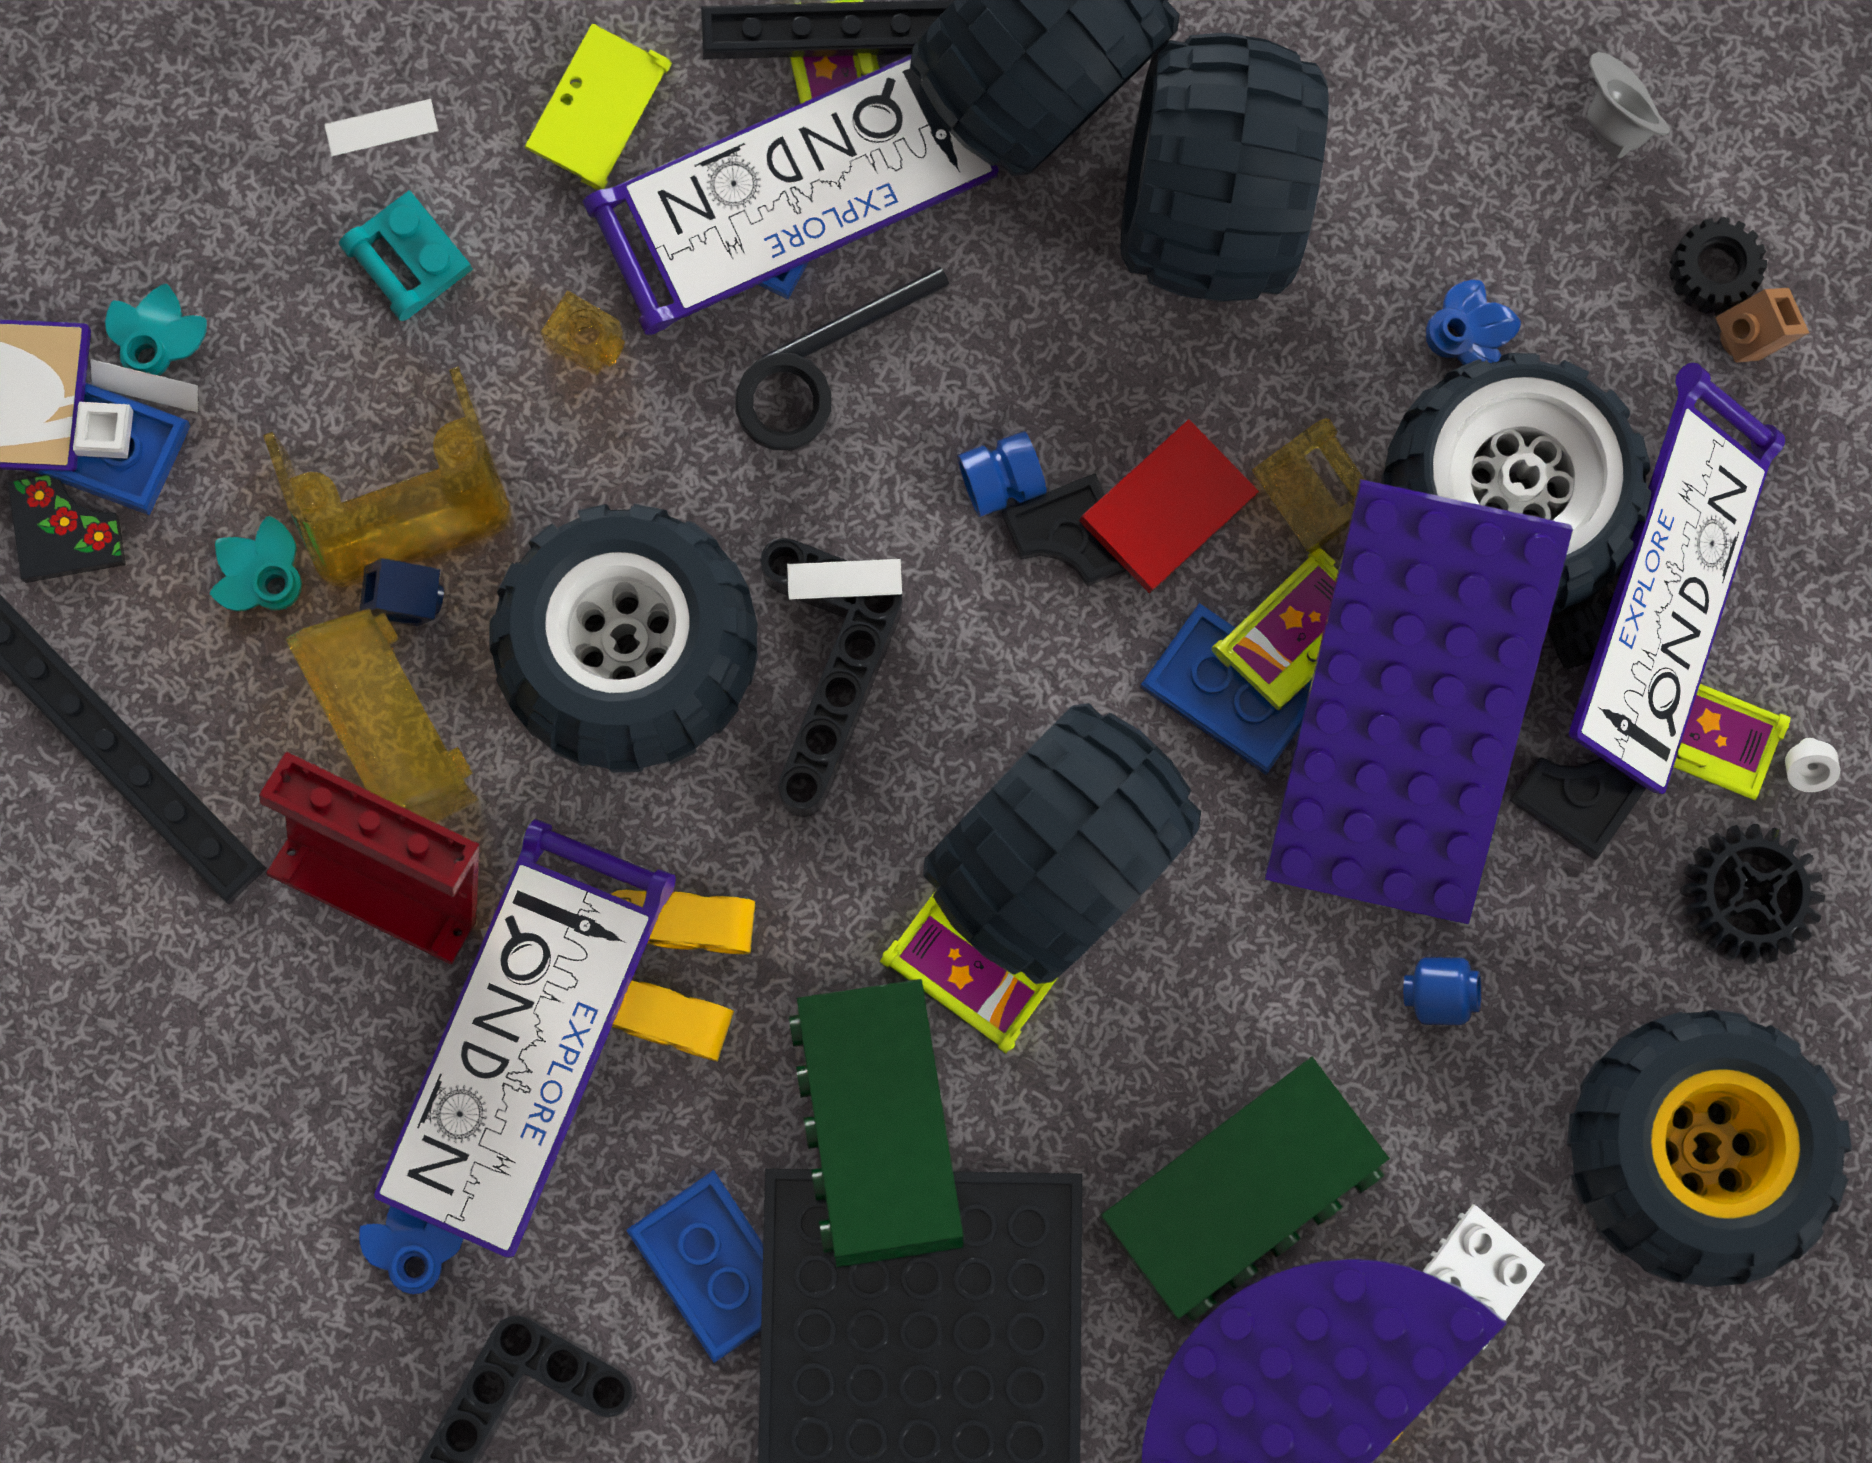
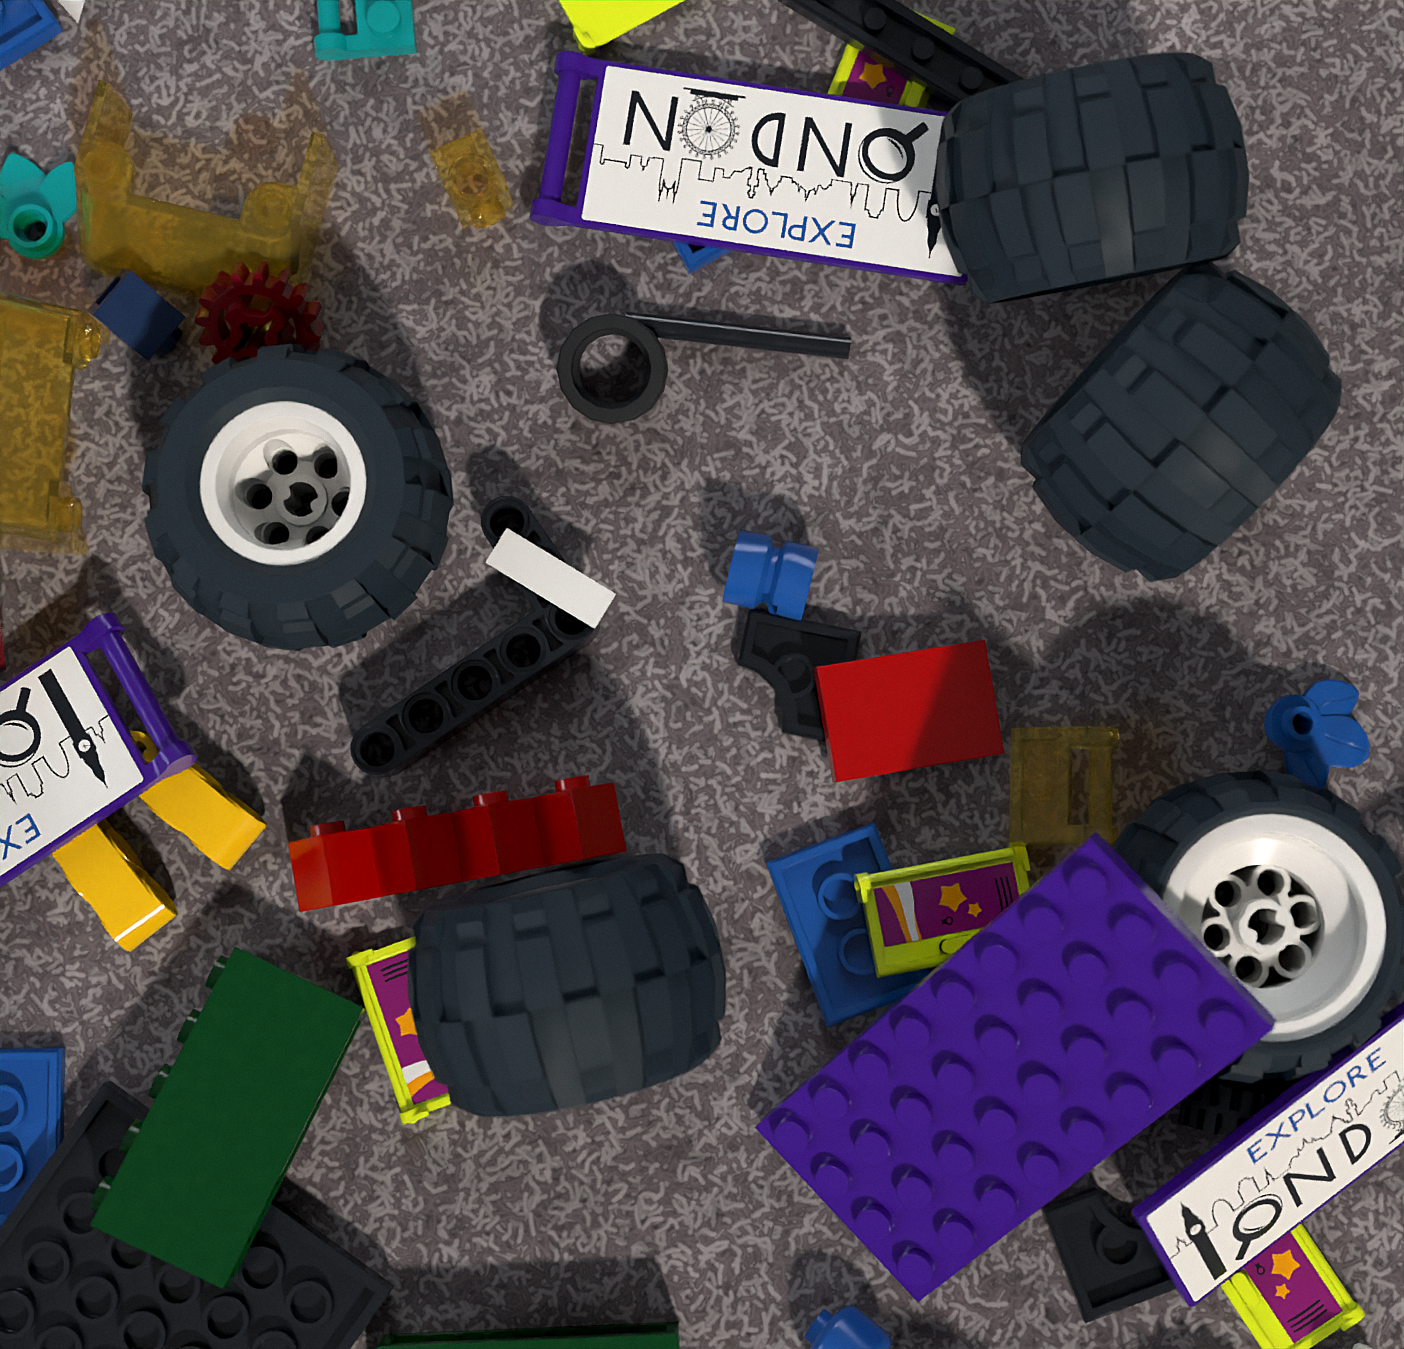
camera: 35 degrees right, 5 degrees up
(489, 520) = (256, 301): none -> dark red gear
(896, 832) = (456, 846): none -> red brick

